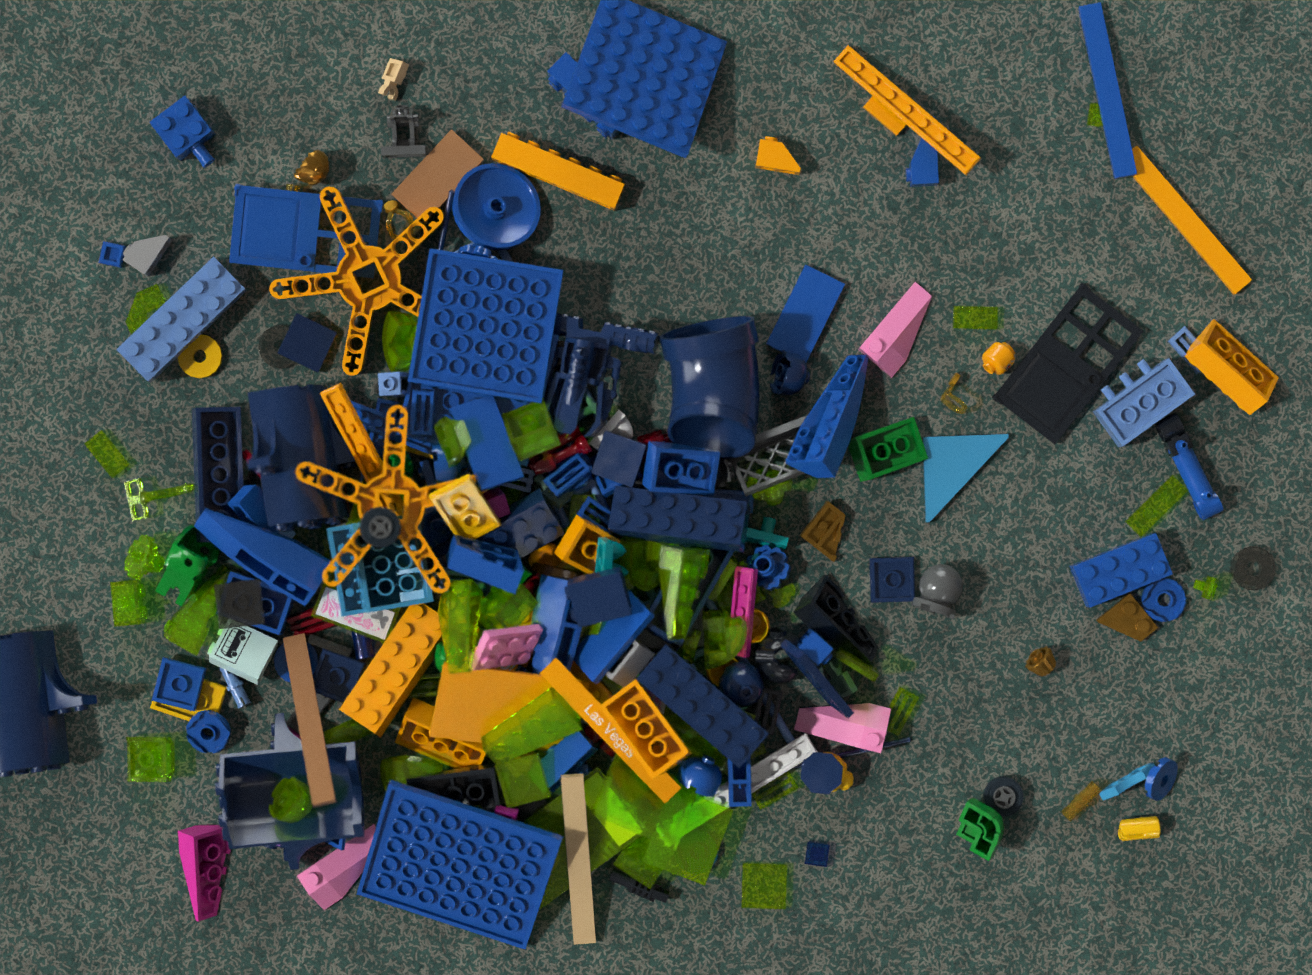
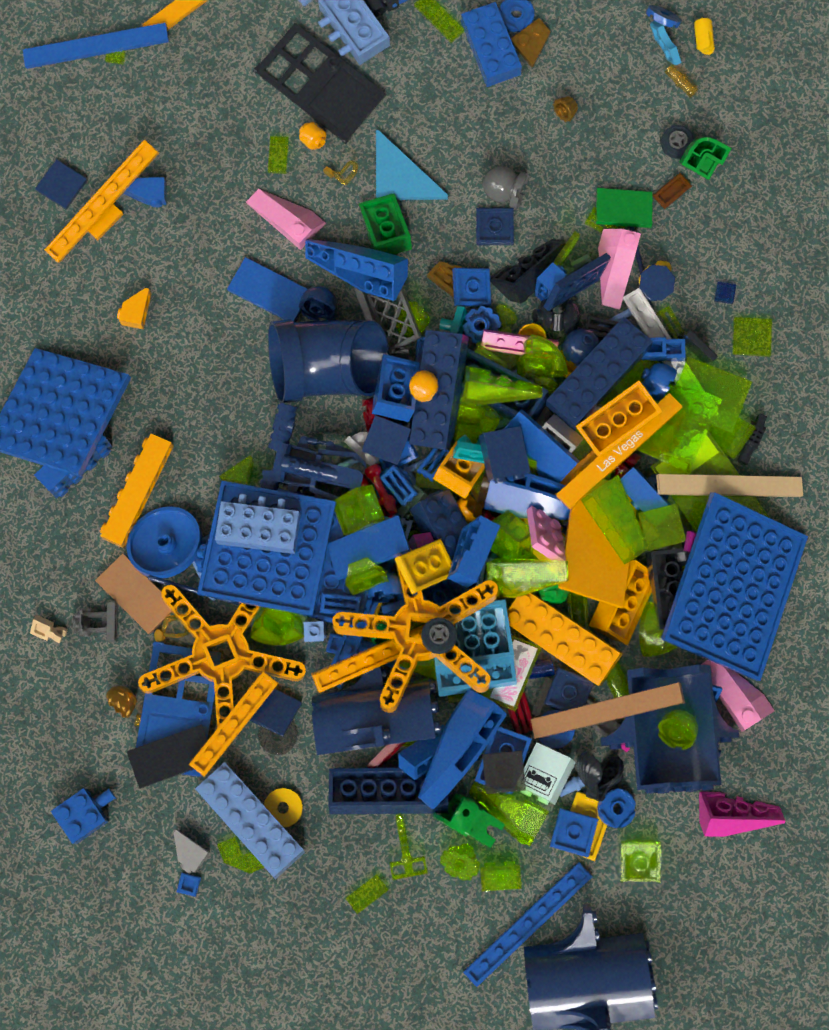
camera: 85 degrees left, 10 degrees down
(79, 634) = (527, 924): none -> blue tile
(238, 712) = (596, 780): none -> black animal
(248, 226) = (166, 756): none -> black tile
(286, 297) = (233, 723): none -> light orange tile
(507, 315) = (258, 526): none -> medium blue piece
(580, 290) = (240, 473): none -> clear neon green slope
(679, 501) = (423, 385): none -> light orange hair
(744, 821) = (697, 346): none -> black tile
(813, 554) = (471, 287): none -> blue tile
(917, 733) = (624, 208): none -> green tile
(930, 59) = (61, 184): none -> dark blue tile
(941, 790) = (672, 190): none -> reddish brown tile

